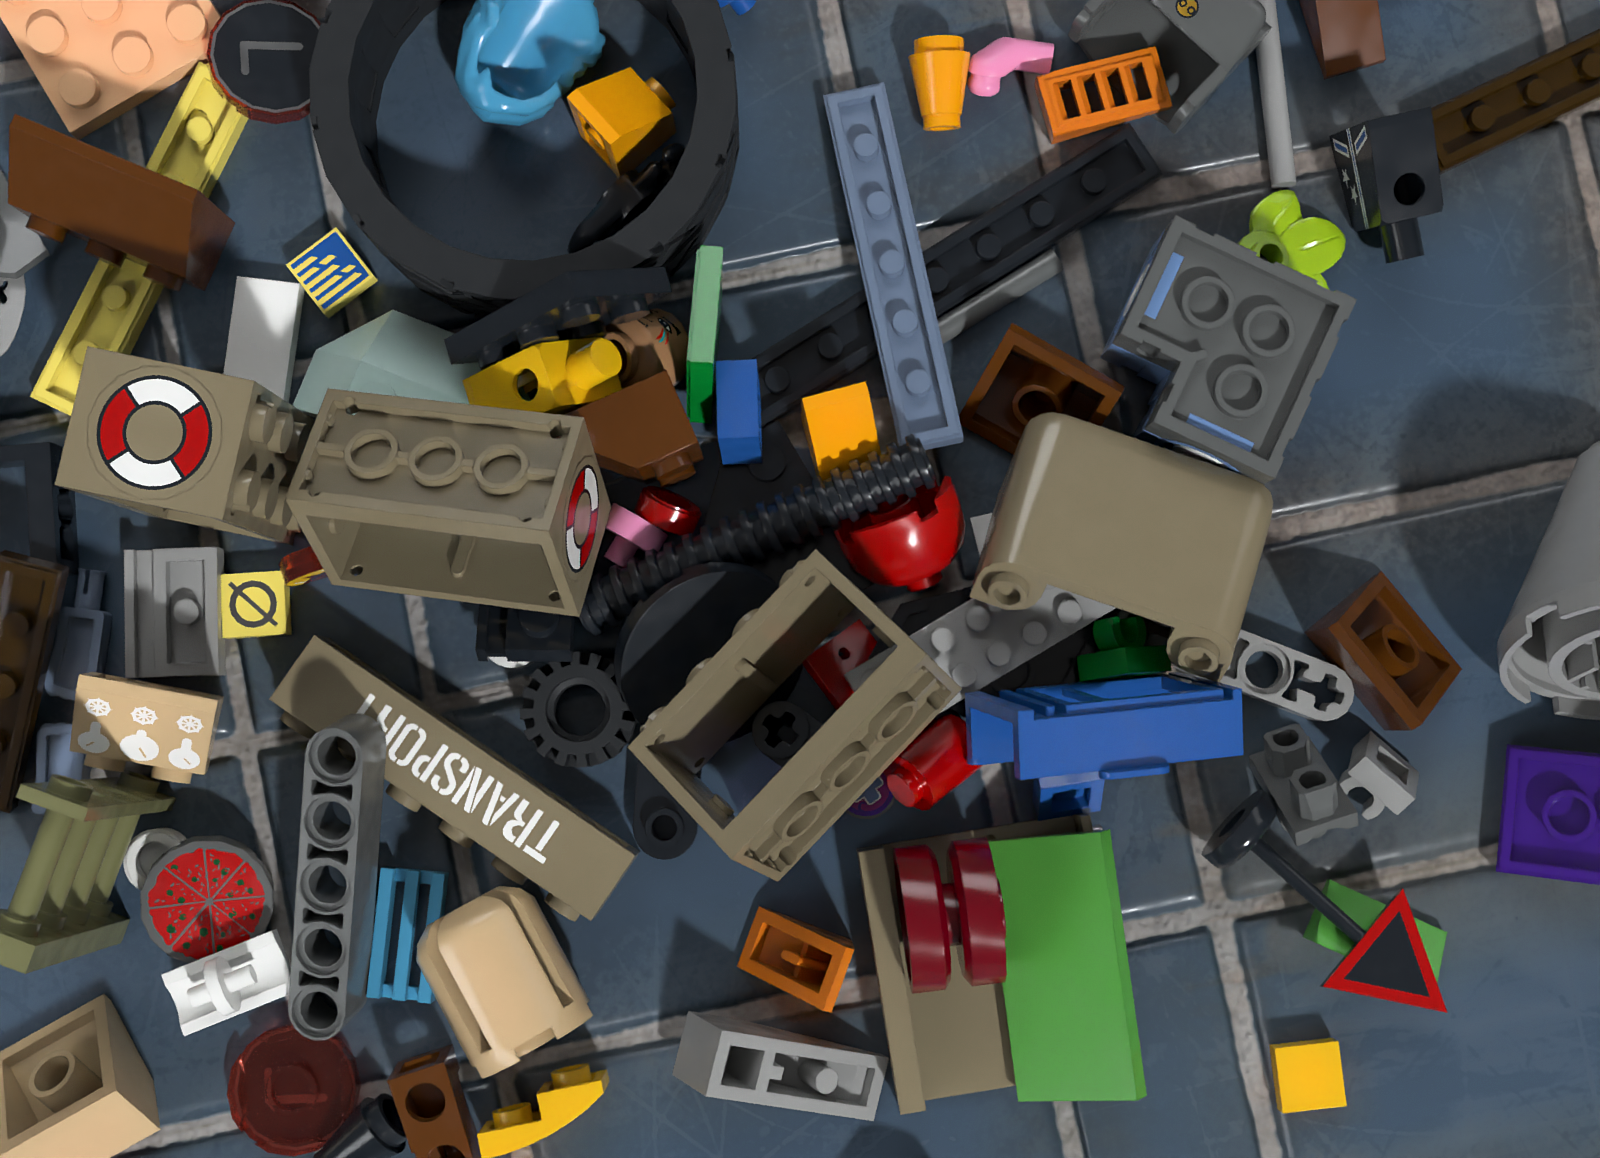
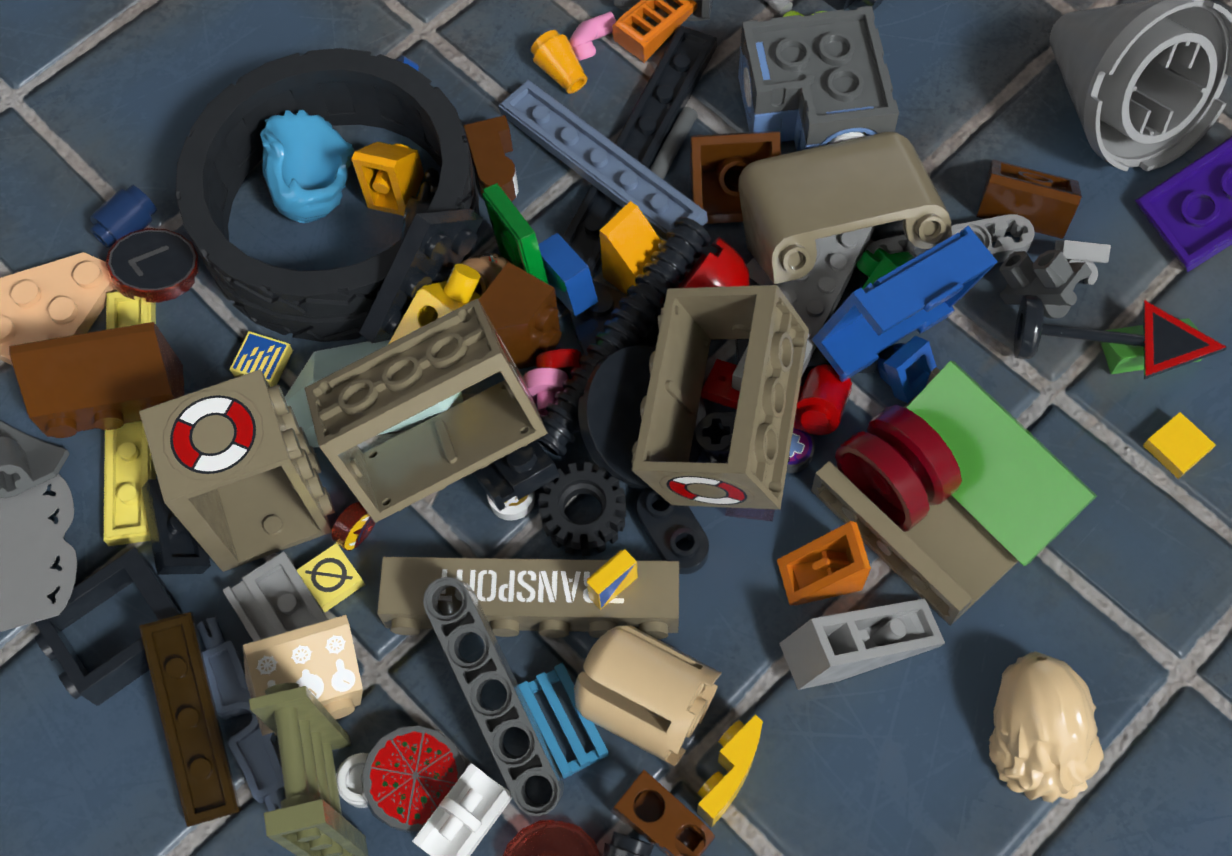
camera: 25 degrees left, 20 degrees down
(538, 839) = (612, 578): none -> yellow tile
(759, 174) = (488, 144): none -> reddish brown leg

